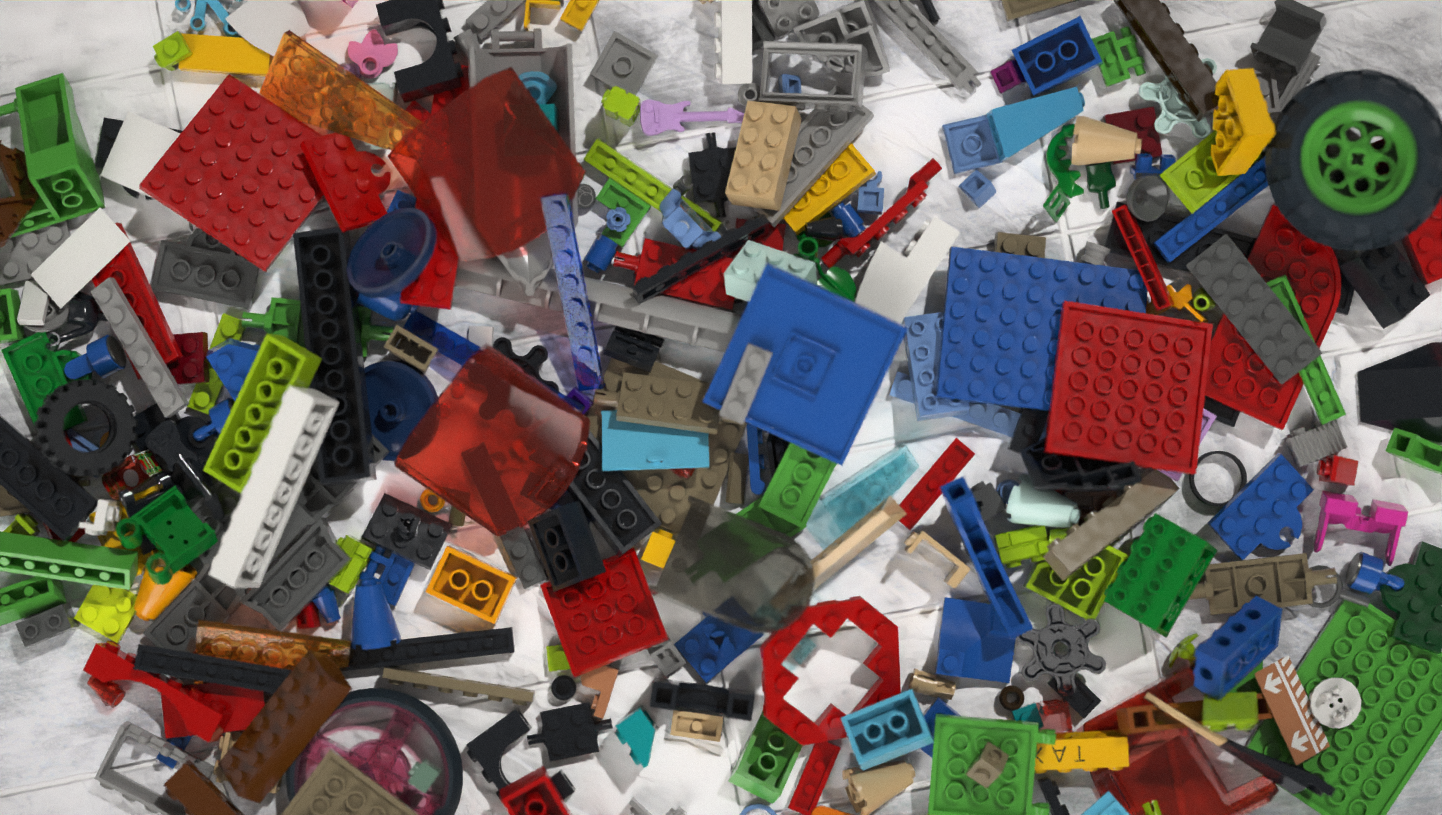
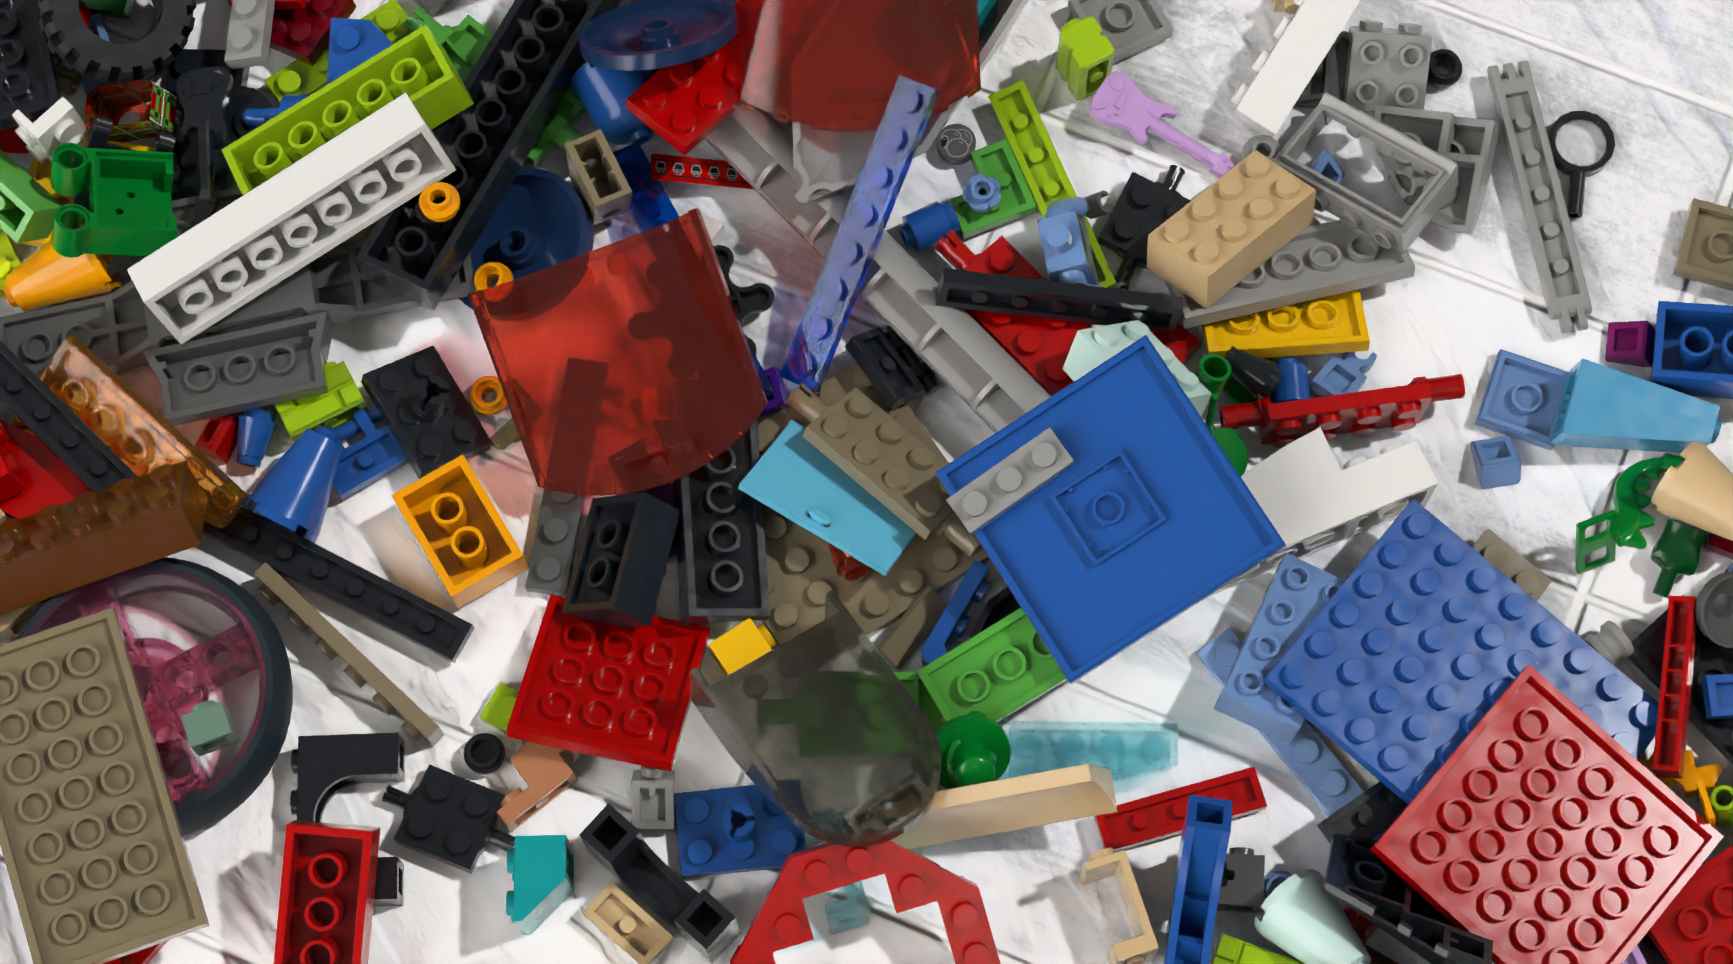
camera: 25 degrees right, 15 degrees down
(350, 429) = (443, 211): none -> light orange plate
(388, 440) = (489, 273): none -> light orange plate
(461, 301) = (696, 171): none -> red sticker
(814, 530) = (972, 750): none -> green plate

